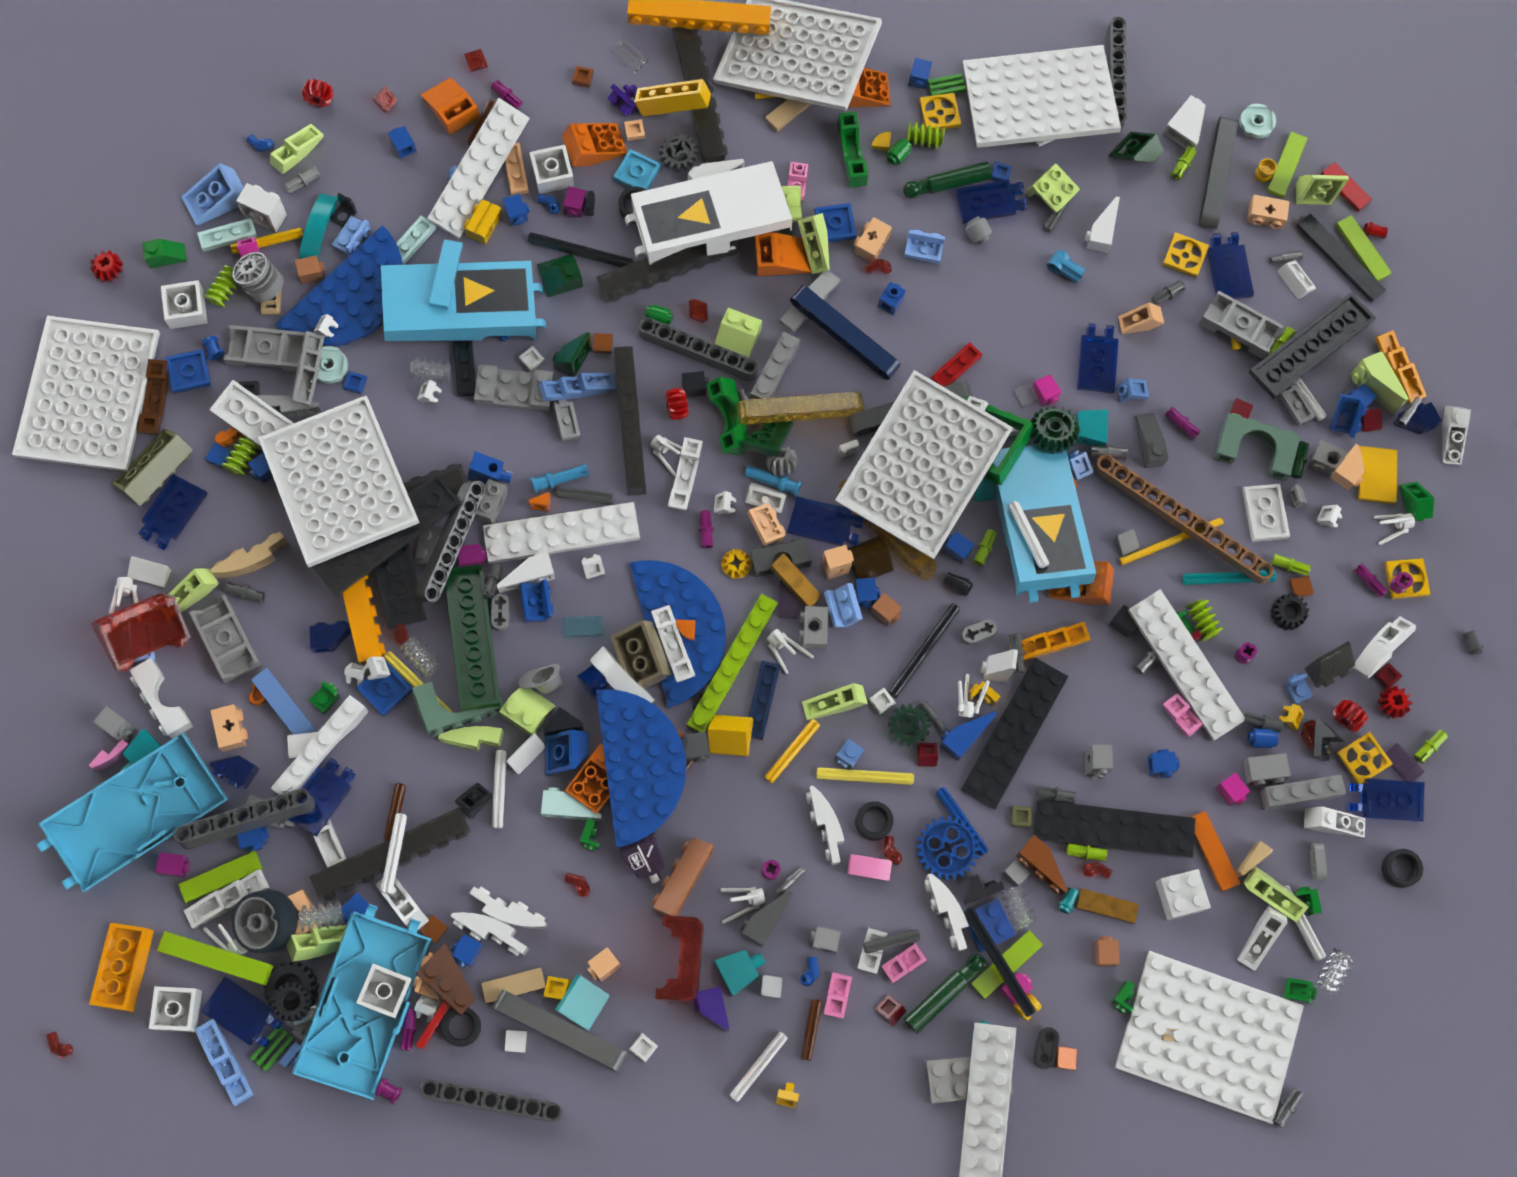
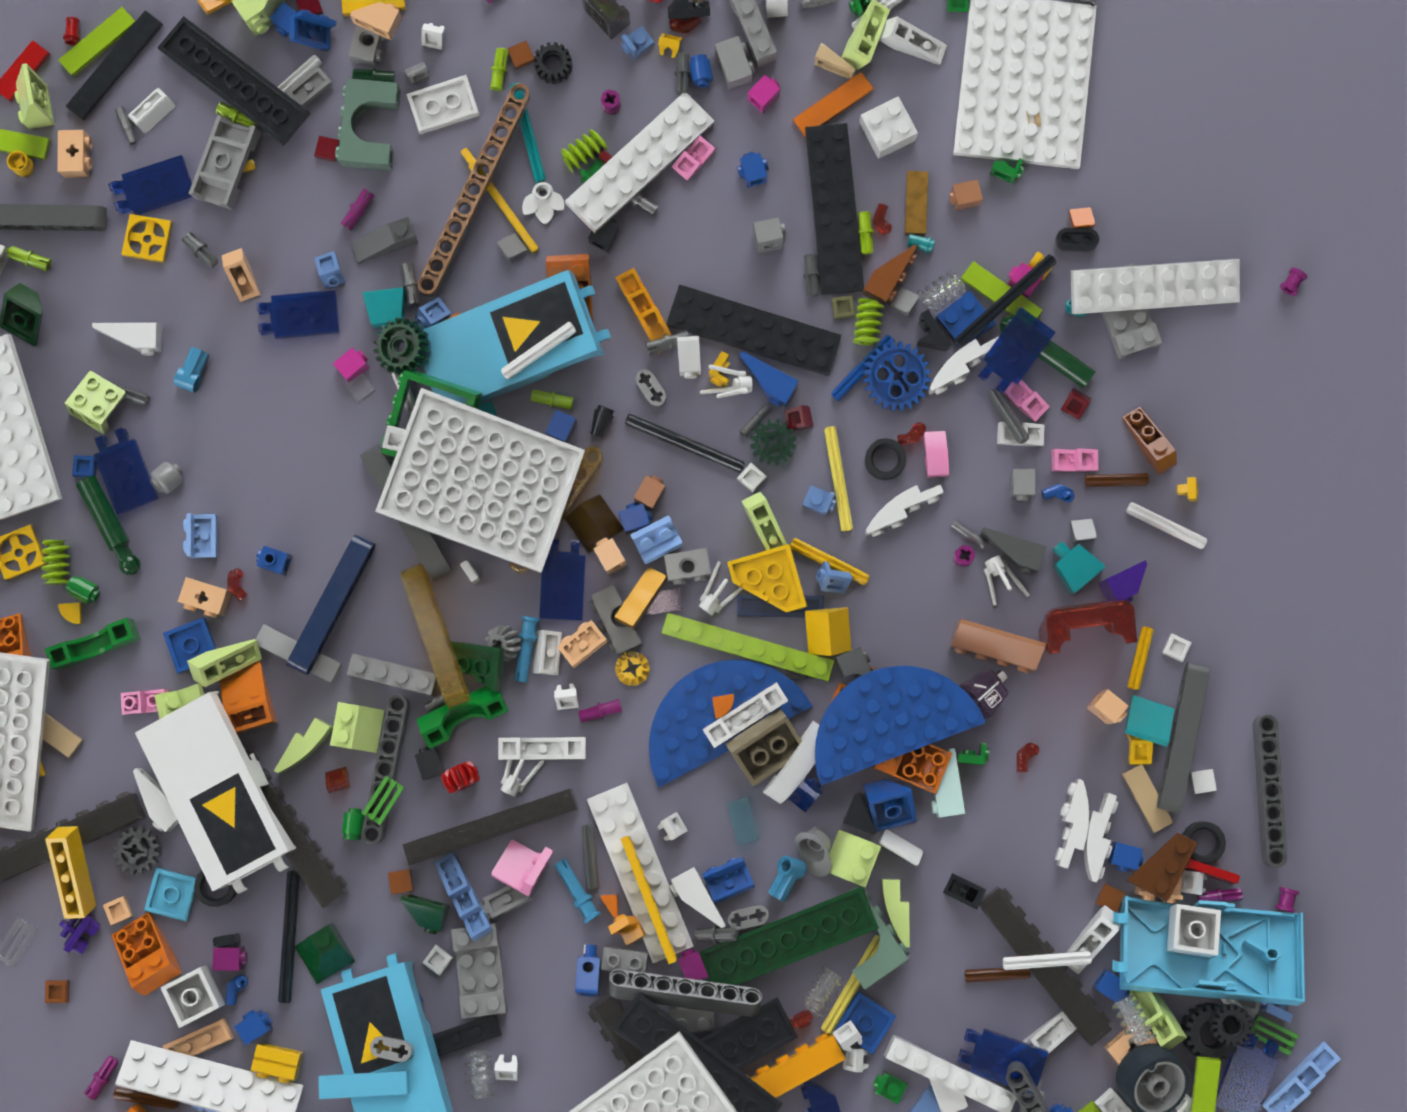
camera: 90 degrees left, 10 degrees up
(471, 302) = (392, 1043): none -> light grey beam
(499, 789) = (945, 867): white axle -> none
(518, 511) = (628, 927): none -> light orange bracket
(529, 652) = (788, 871): none -> dark azure piece
(536, 530) = (649, 899): none -> yellow tile
(590, 436) = (521, 867): none -> bright pink bracket
(641, 1011) = (1140, 658): none -> yellow axle
(661, 328) = (372, 816): none -> bright green tile
(733, 290) = (304, 745): none -> yellowish green slope
(774, 747) = (833, 580): none -> medium blue bracket
(788, 695) = (771, 577): none -> yellow plate
(841, 1070) = (1150, 440): none -> dark orange slope
(951, 960) = (1016, 349): none -> clear blue tile
(957, 365) = (342, 471): red tile -> none
(1003, 834) = (867, 322): none -> lime piece
(1160, 576) = (543, 205): none -> white plate

